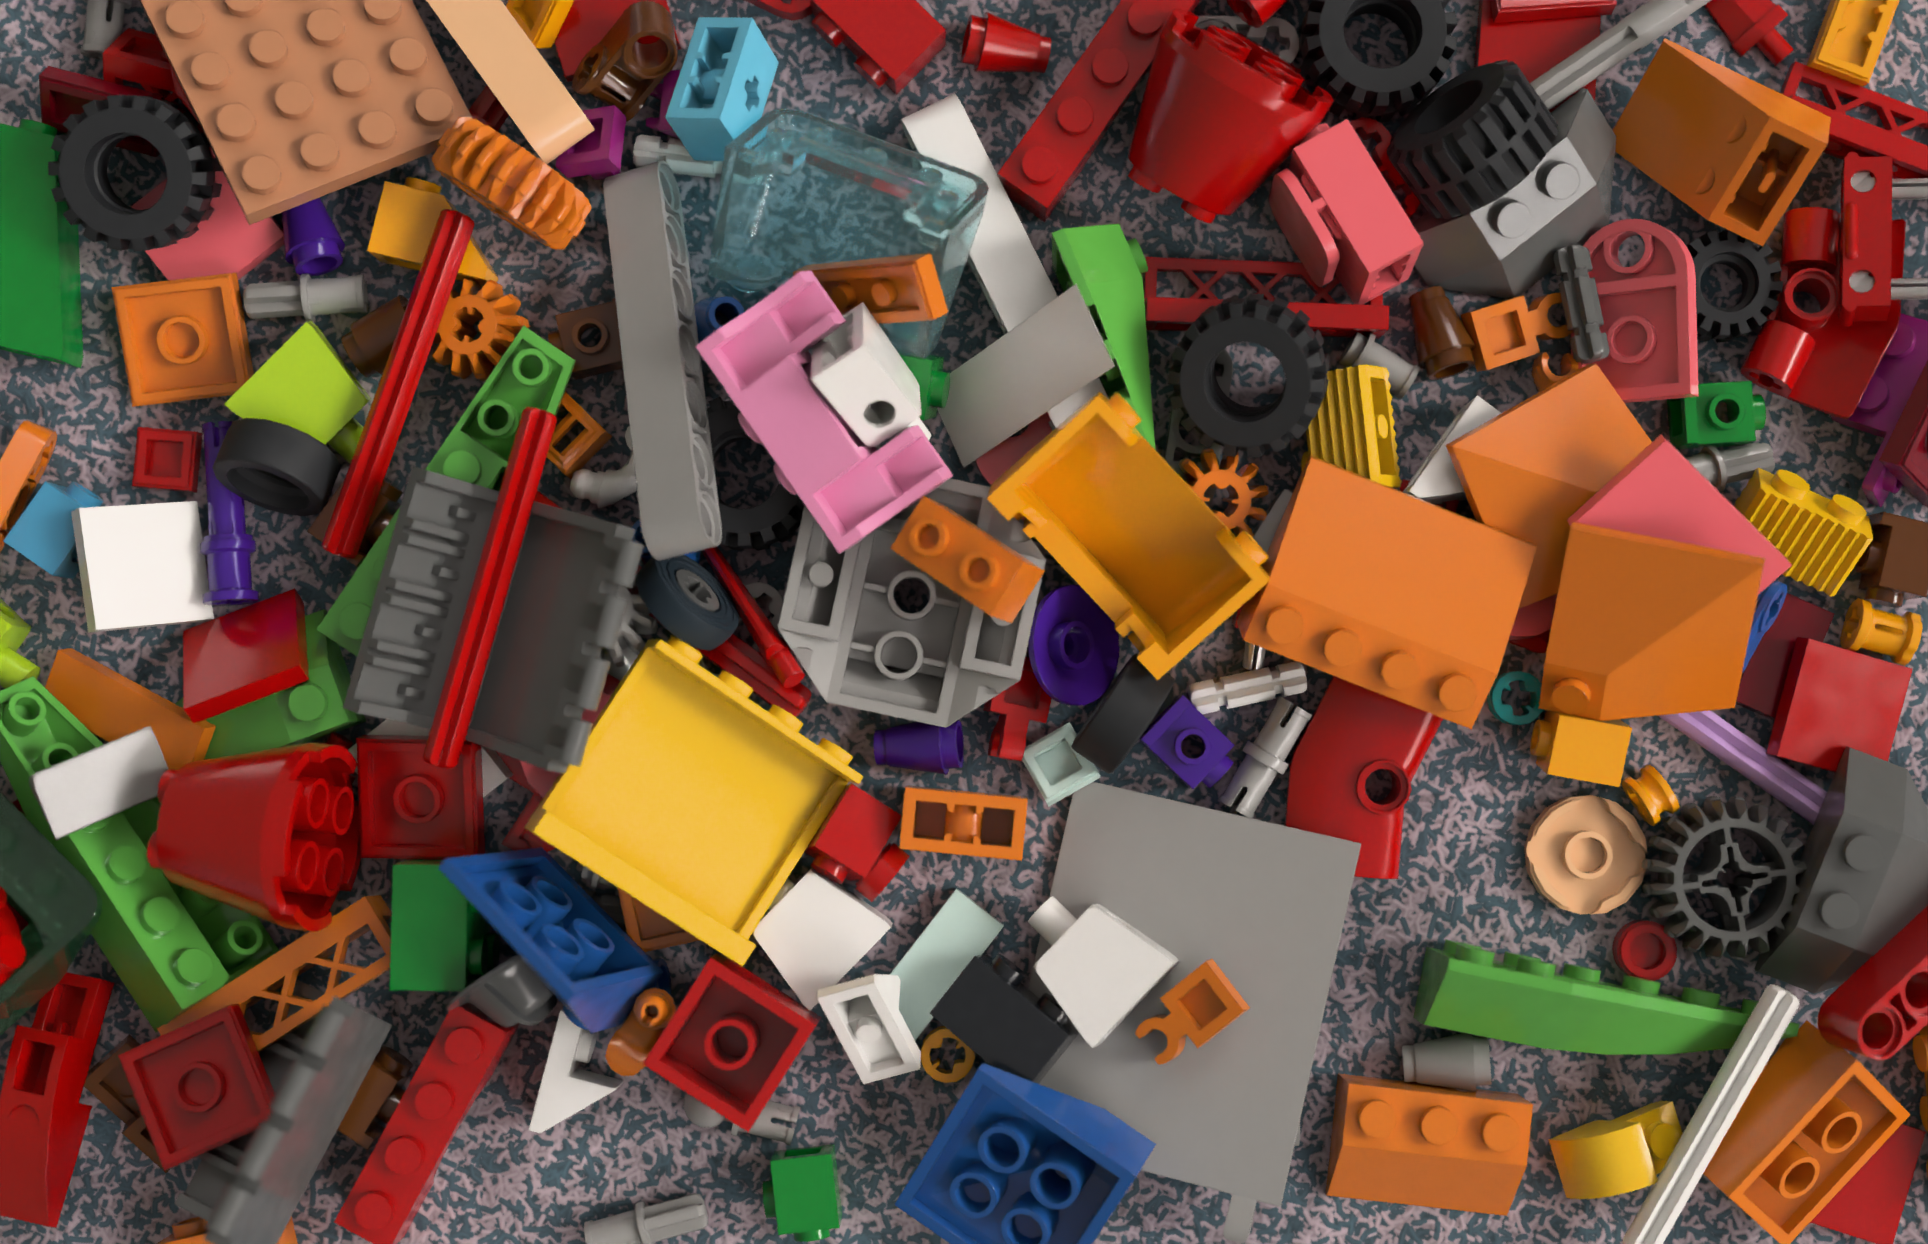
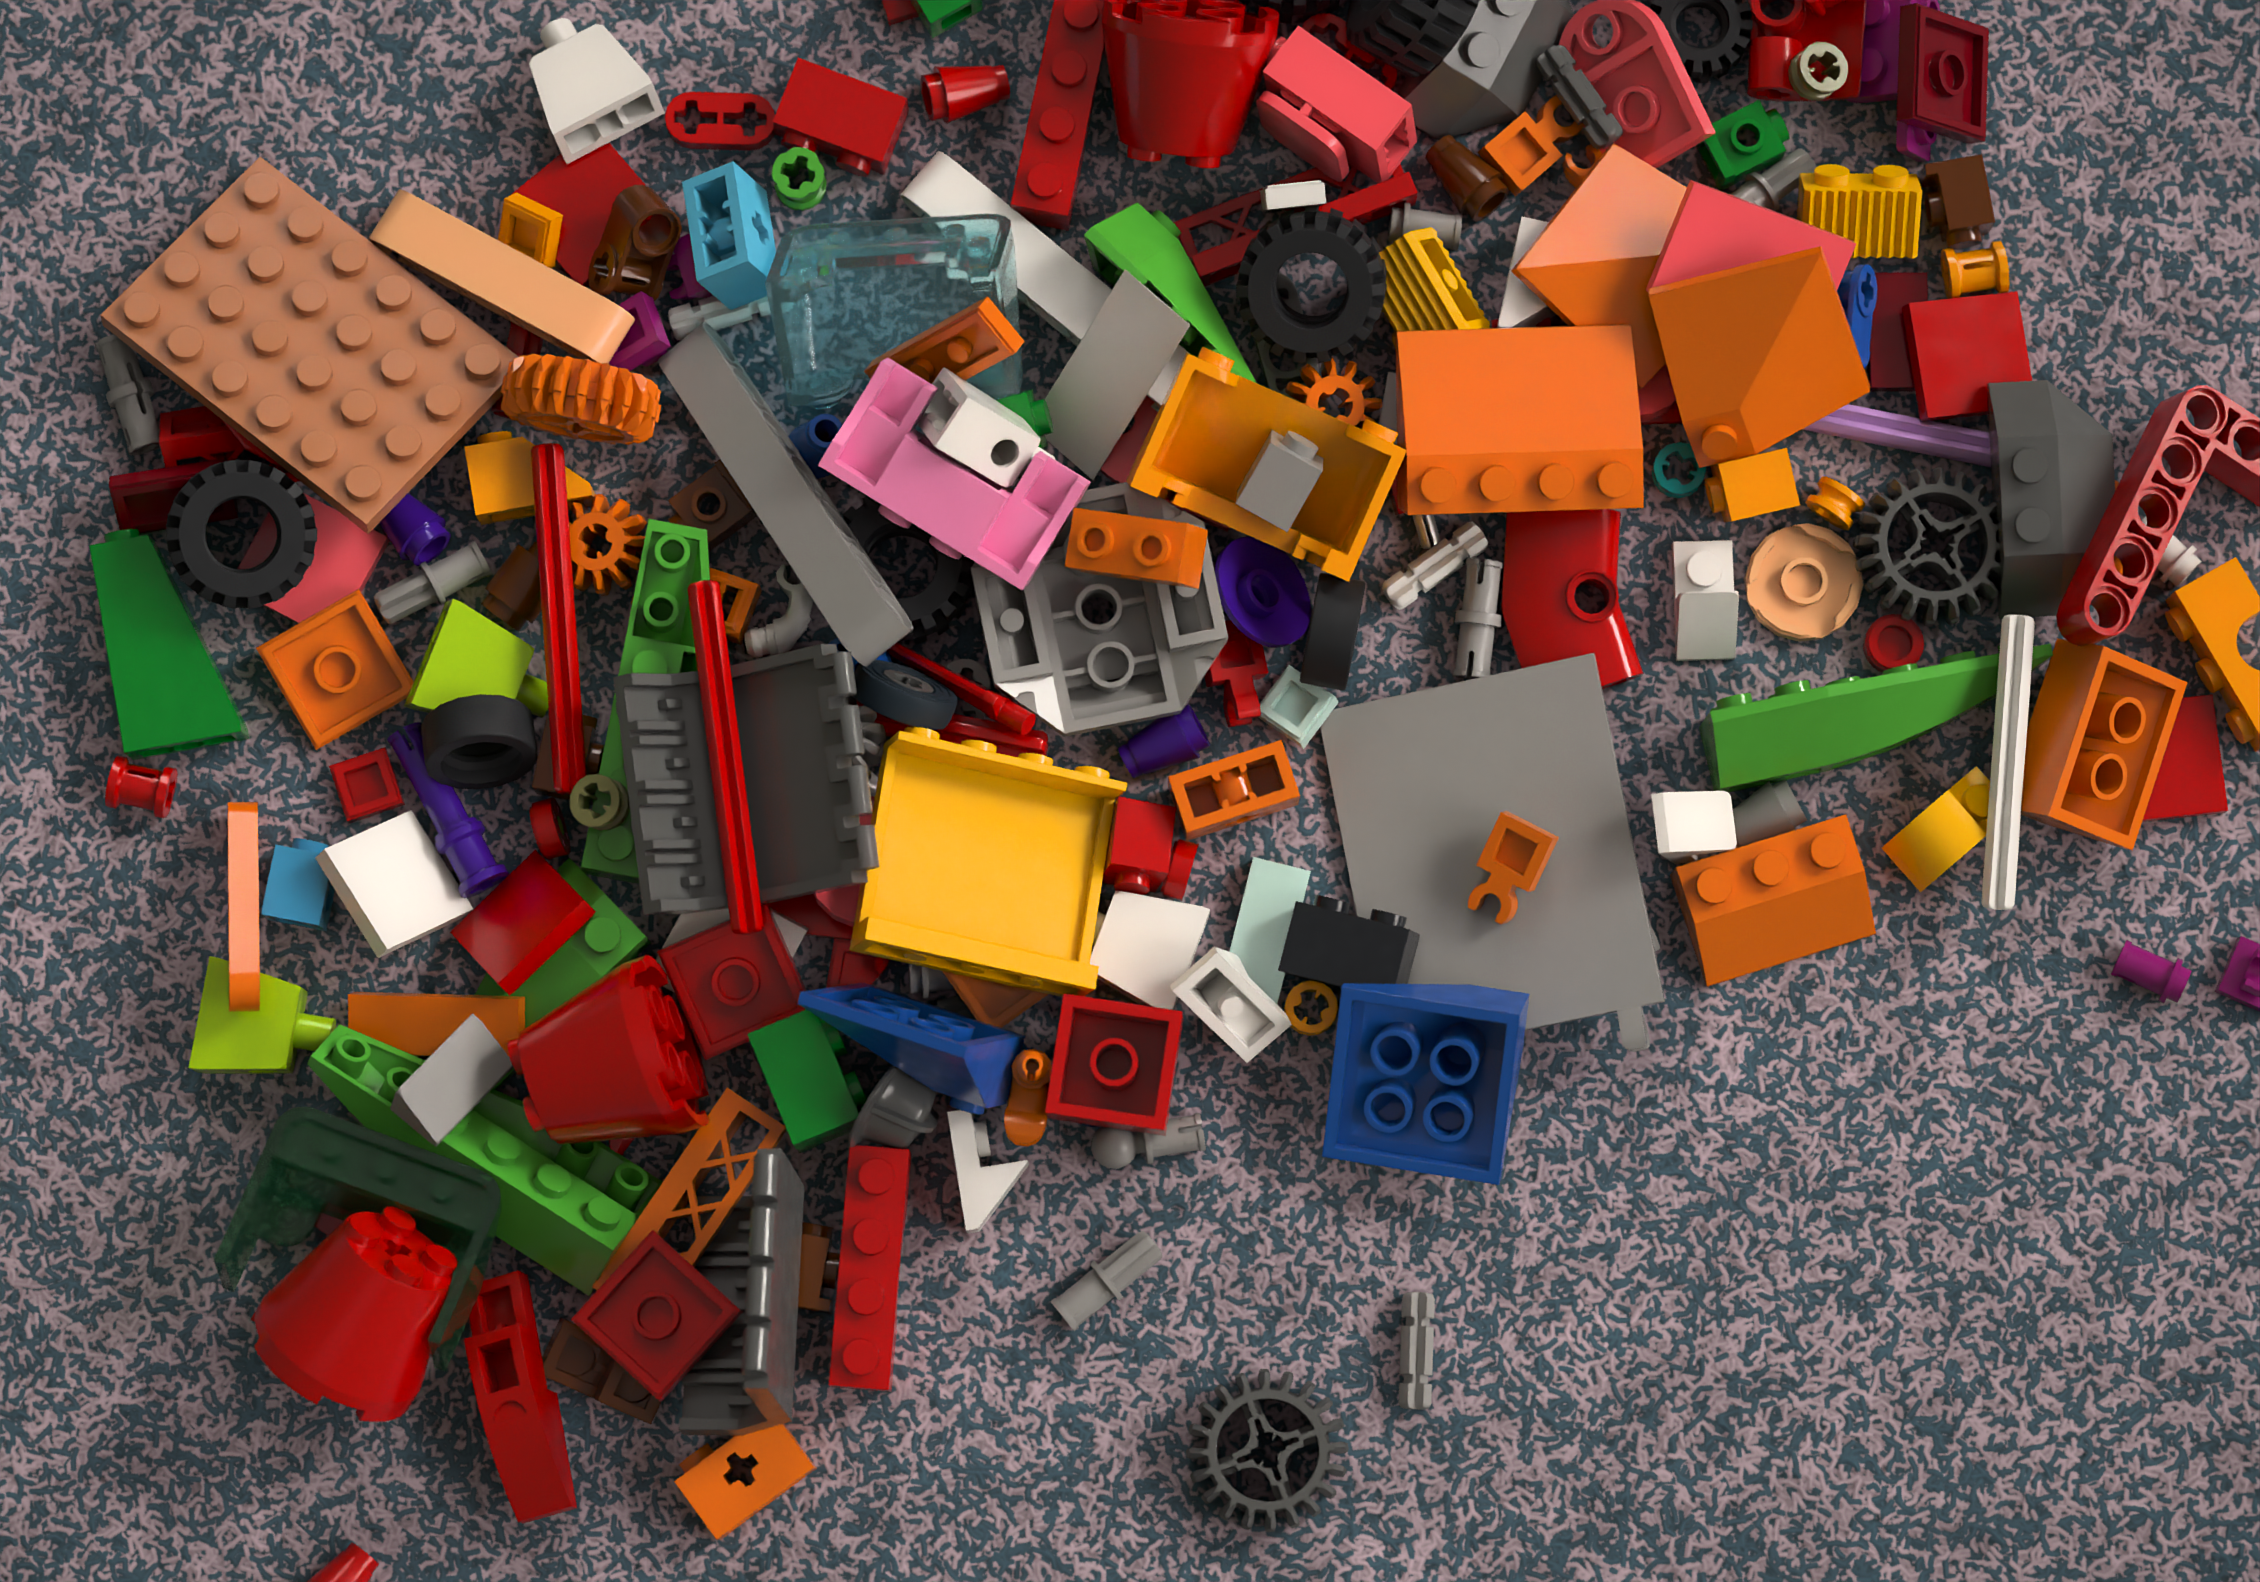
camera: 25 degrees left, 5 degrees down
(313, 576) = (549, 828): none -> red tile
(338, 570) = (585, 790): none -> olive bush
(804, 1192) = (1236, 1185): green brick -> none
(813, 45) = (789, 165): none -> bright green bush
(1097, 966) = (1410, 862): white torso -> none
(1136, 551) = (1280, 478): none -> light grey brick
(1165, 741) = (1382, 646): dark purple brick -> none
(1269, 281) = (1293, 195): none -> white tile
(1385, 1051) = (1693, 824): none -> white slope
(1485, 831) = (1704, 600): none -> white slope
(1839, 383) = (1801, 77): none -> olive bush

